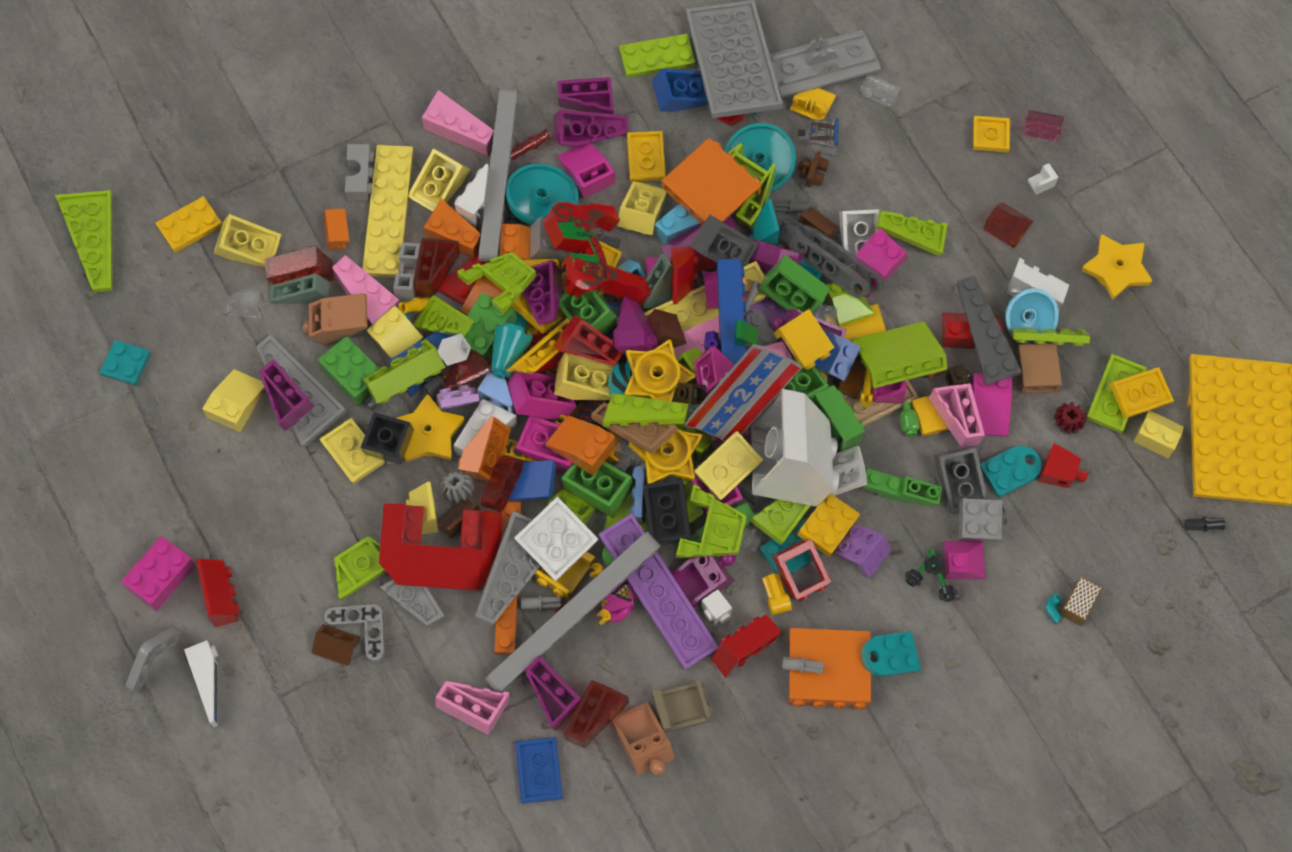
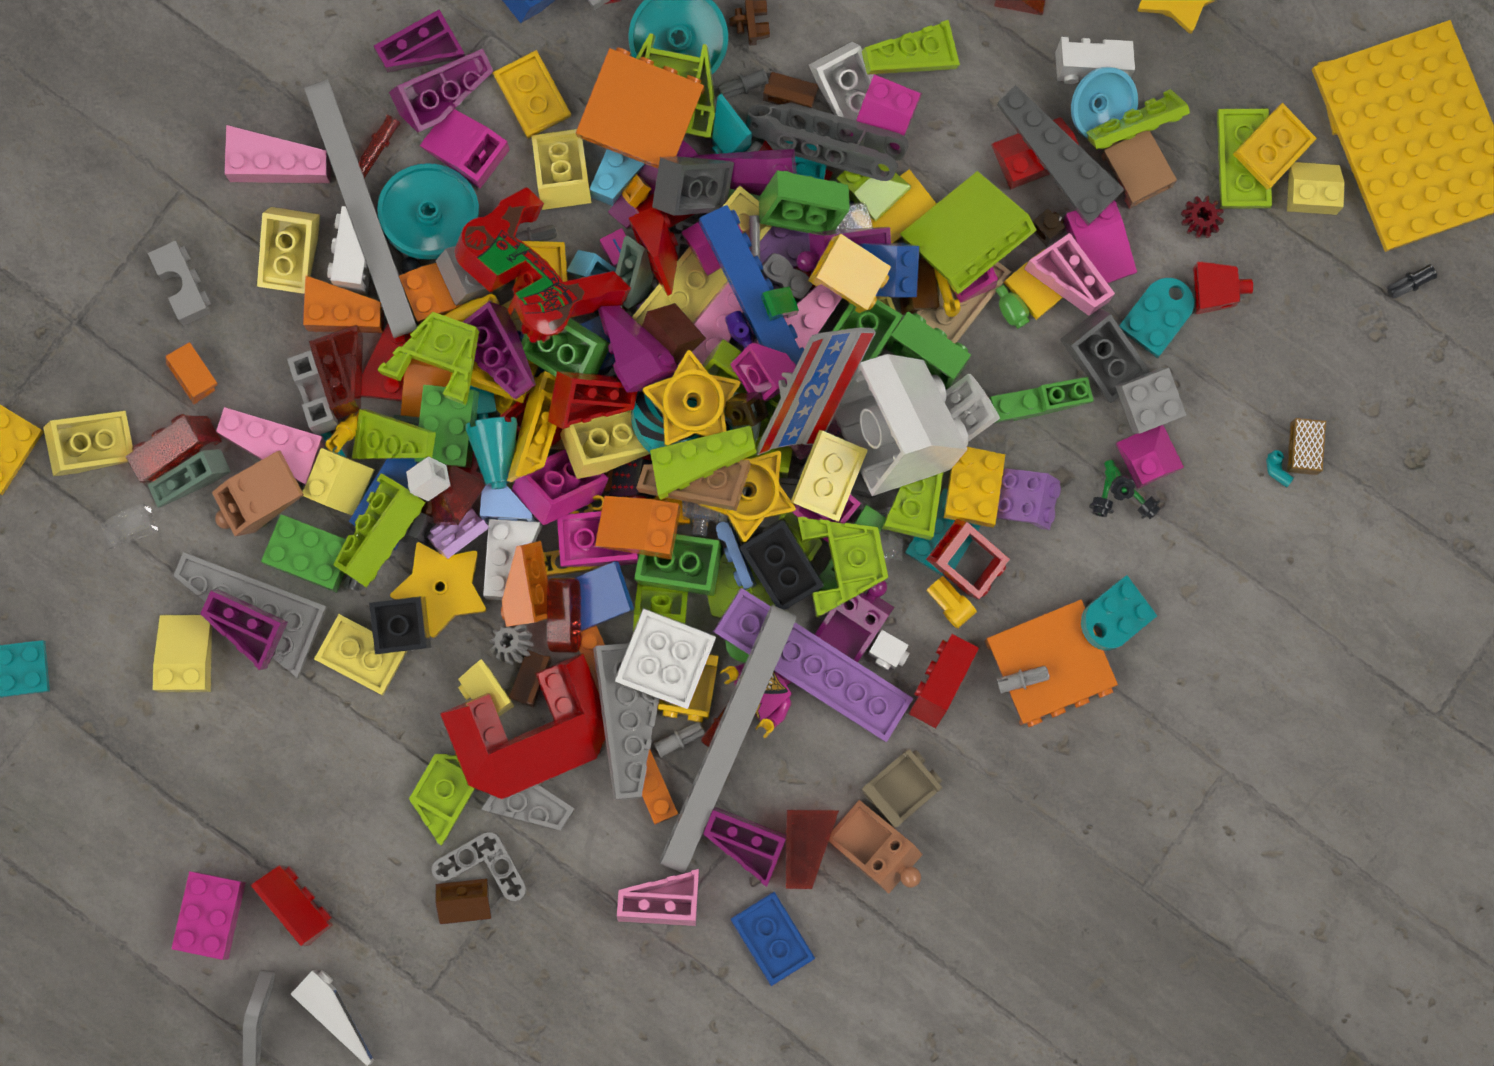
camera: 25 degrees left, 15 degrees up
(387, 210) = (242, 317): light yellow plate -> none
(685, 238) = (636, 191): none -> light orange plate

